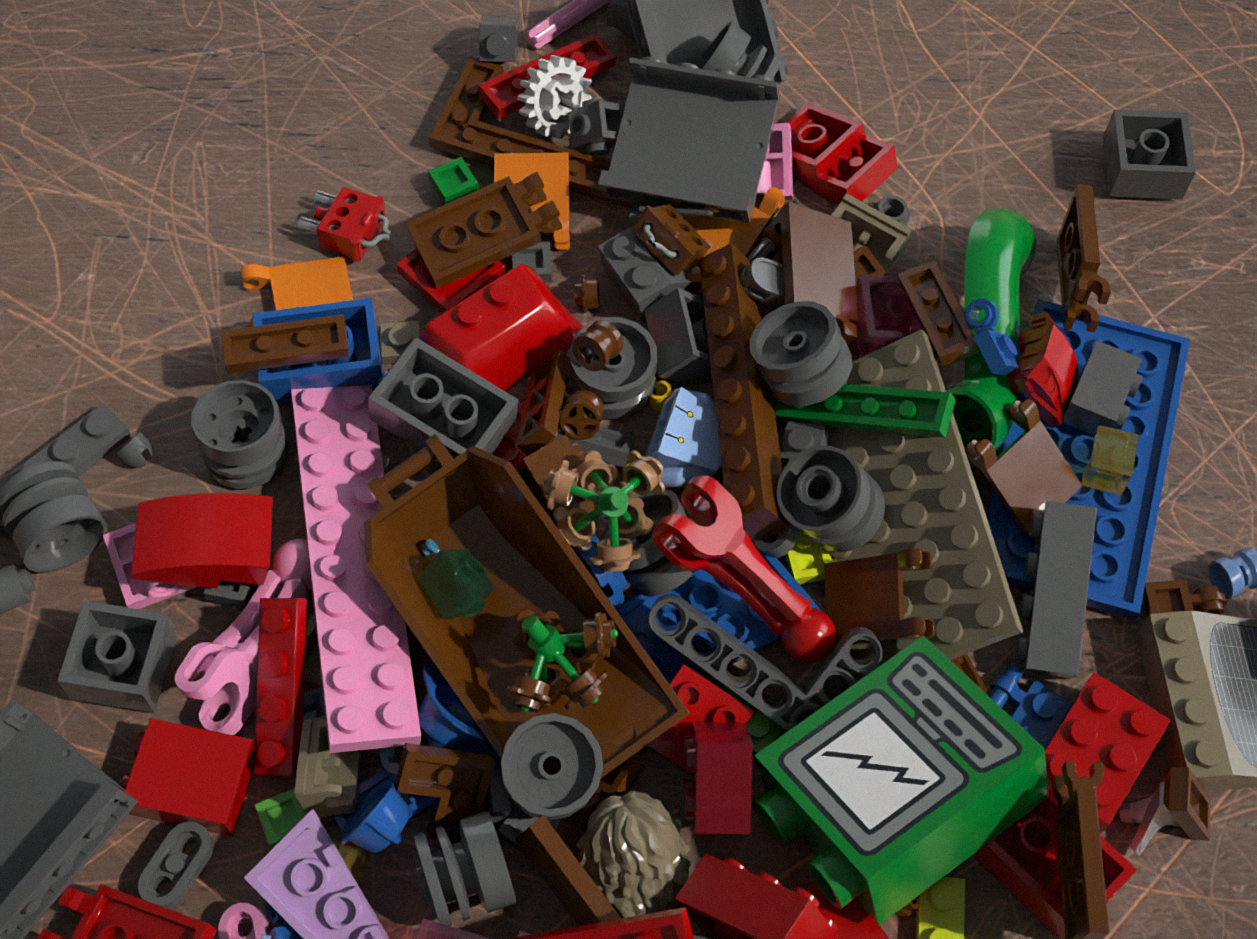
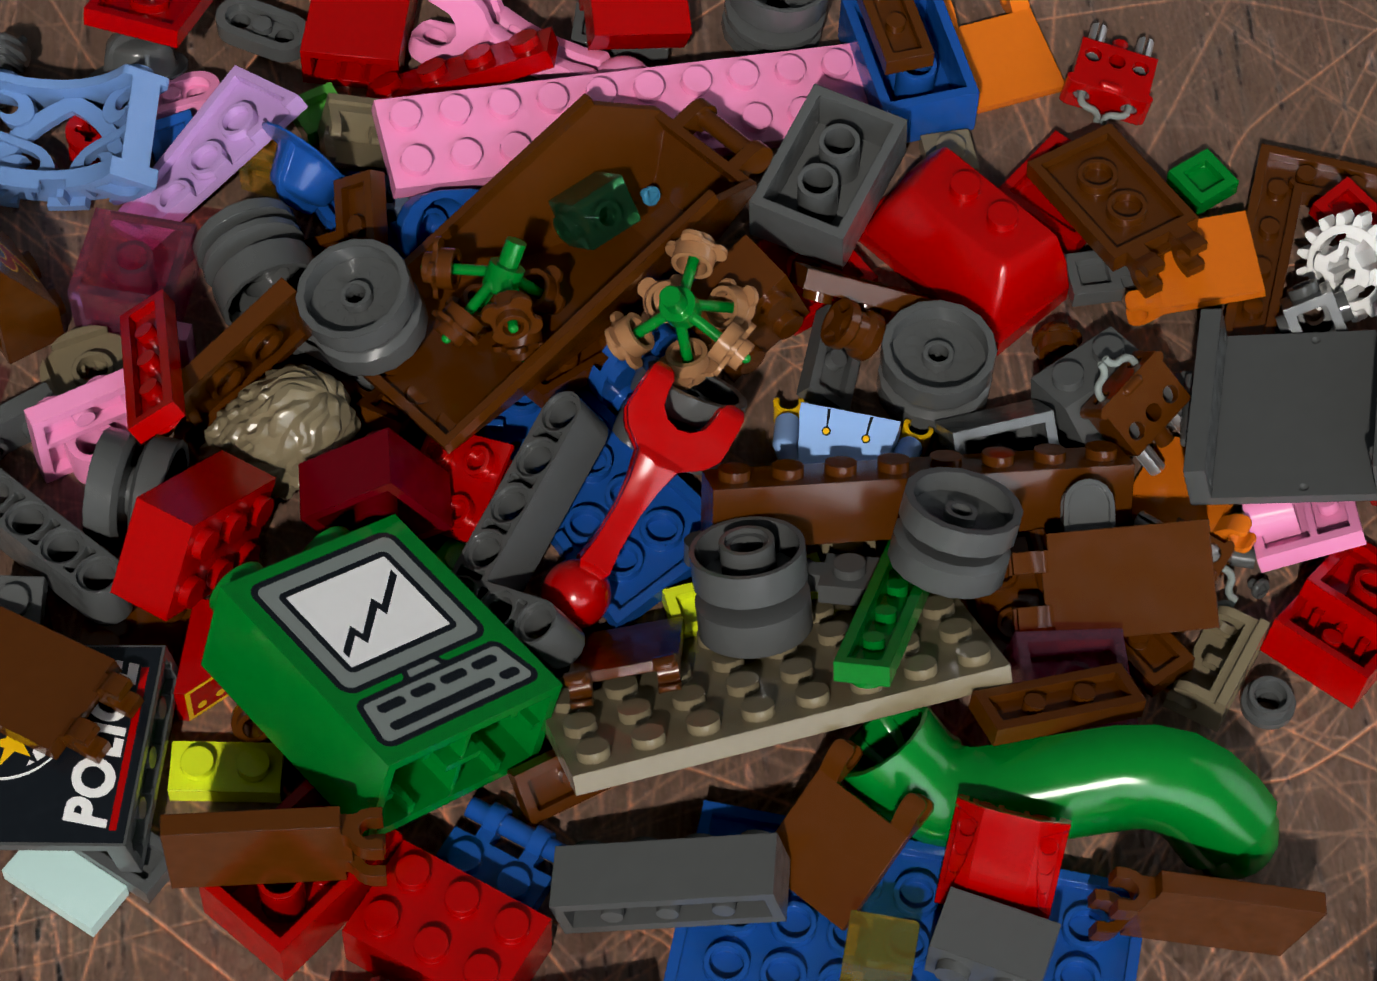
camera: 85 degrees right, 5 degrees down
(597, 345) = (937, 316): reddish brown wheel -> none
(996, 348) = (994, 756): blue plate -> none

